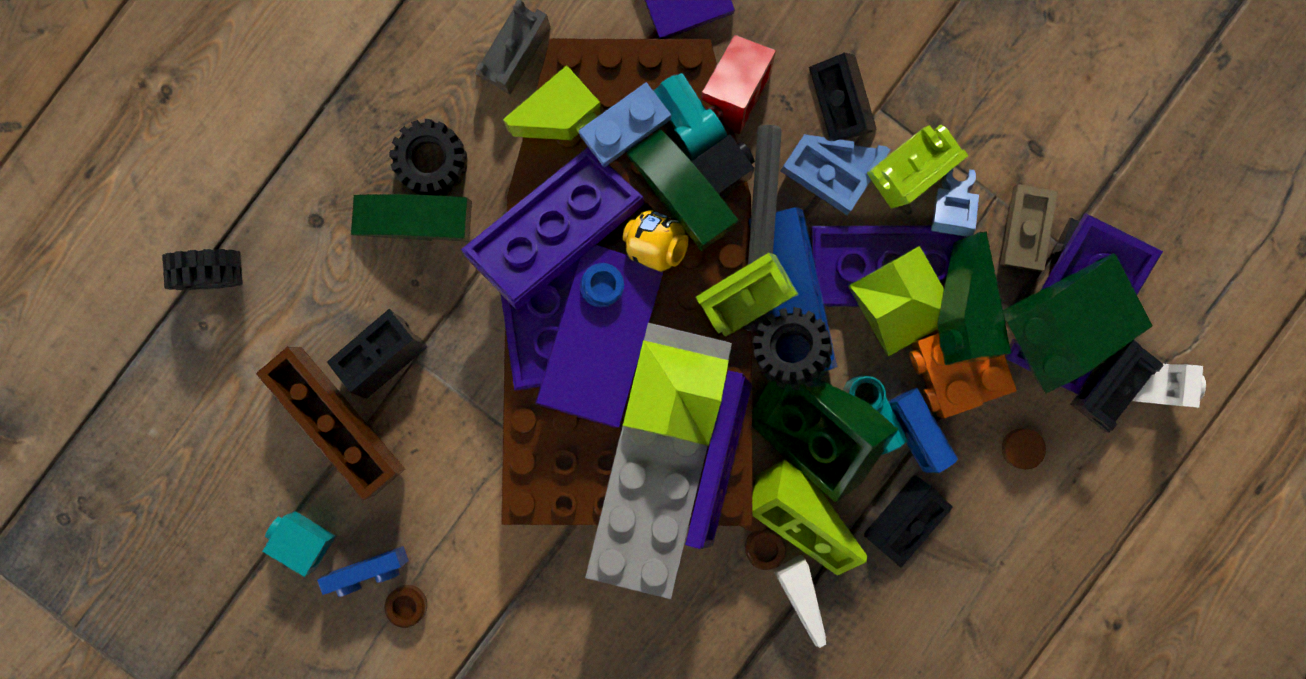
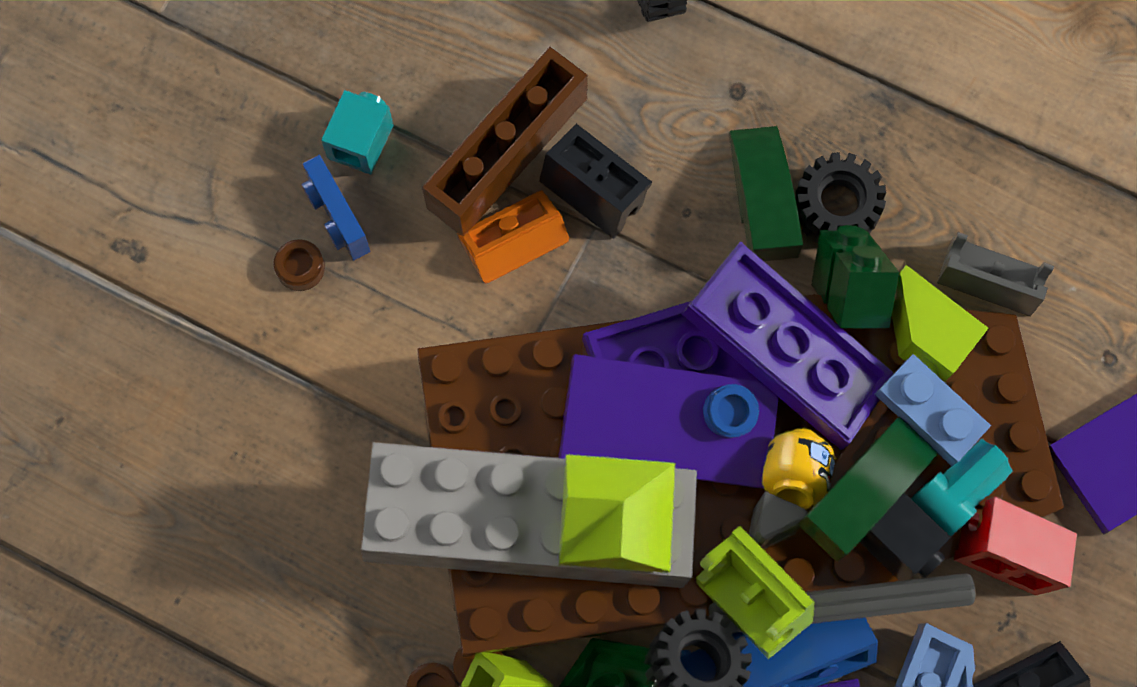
camera: 80 degrees right, 15 degrees down
(411, 427) = (514, 236): none -> orange slope
(503, 161) = (855, 278): none -> dark green piece
(692, 269) = (774, 520): none -> dark grey slope
(719, 461) = (541, 585): dark purple tile -> none

